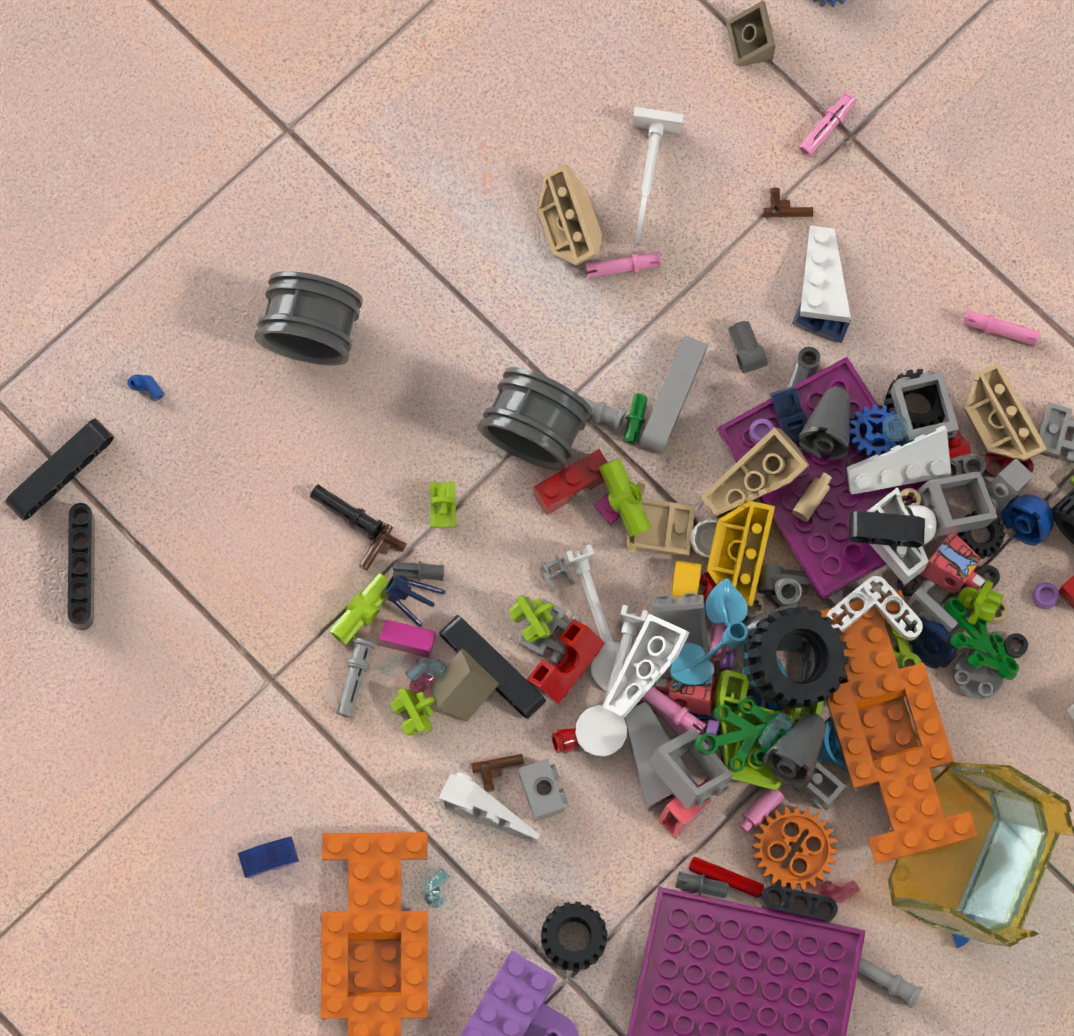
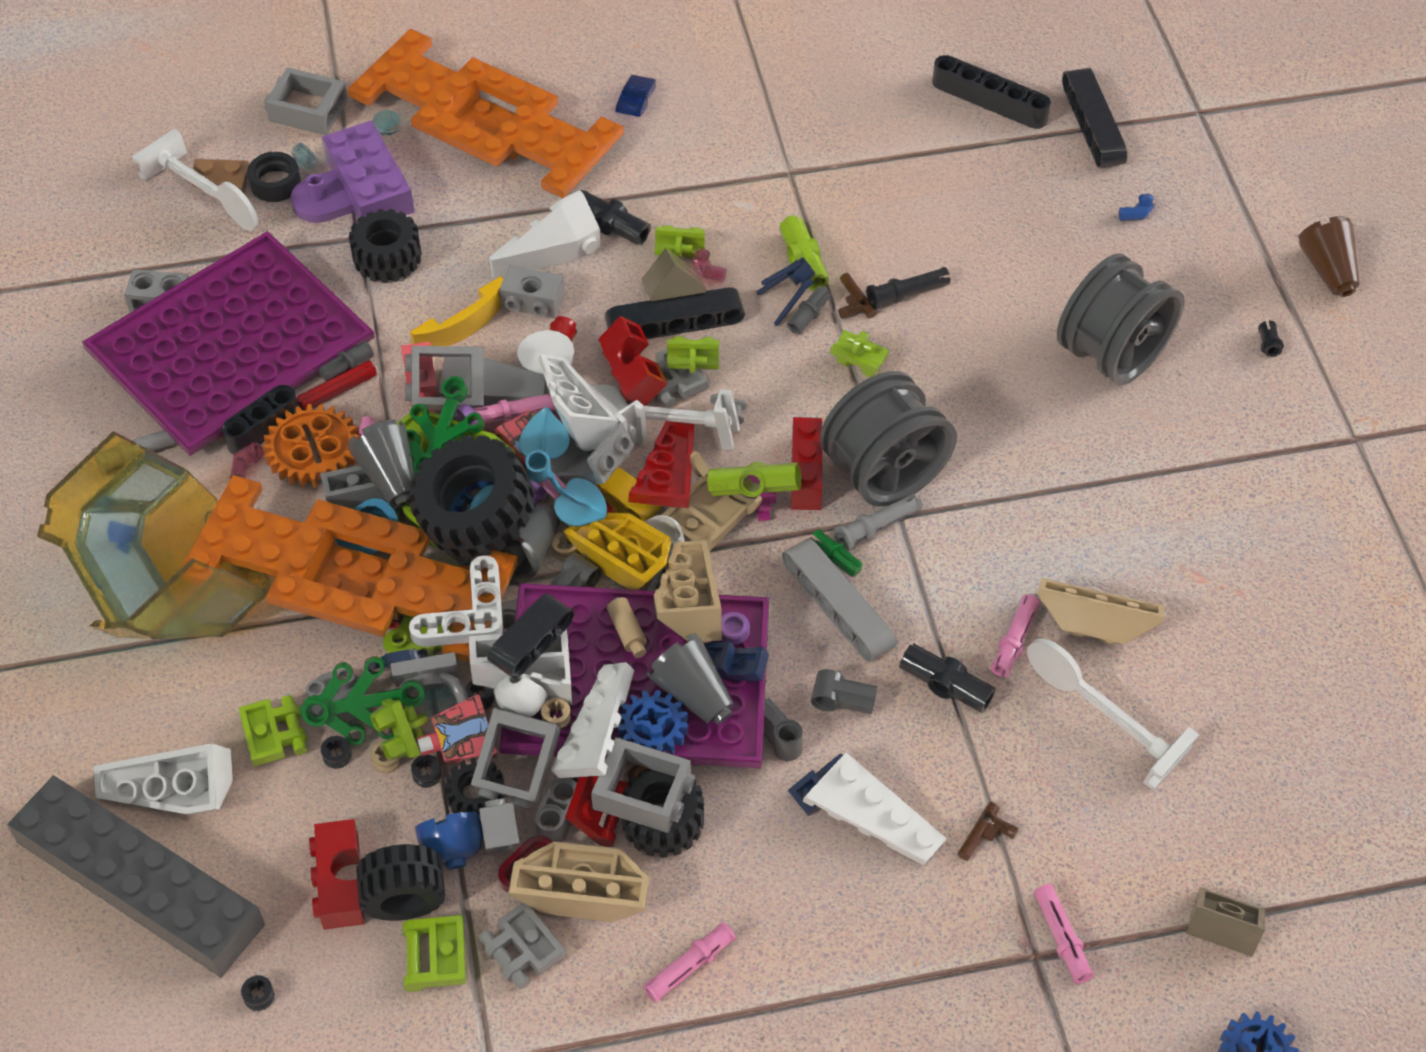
camera: 125 degrees right, 20 degrees down
(115, 214) = (1333, 253): none -> reddish brown cone
(229, 225) = (1271, 343): none -> black pin
(357, 666) = (752, 226): light grey pin -> none
(407, 638) = (749, 268): dark pink panel -> none
(422, 783) = (614, 217): none -> black piece
(425, 666) = (713, 262): clear light blue arm -> none
(432, 888) = (518, 185): clear light blue arm -> none
(495, 769) = (582, 274): reddish brown hose -> none
(570, 816) = (464, 322): none -> yellow slope
(650, 569) = (667, 468): none -> red wing
(689, 289) = (947, 677): none -> black piece
(772, 729) = (423, 447): clear light blue arm -> none
(793, 595) = (553, 560): light grey piece -> none
(895, 428) = (638, 727): clear light blue tile -> none
(1037, 703) = (262, 733): none -> lime plate
(1045, 595) = (365, 815): medium lavender tile -> none

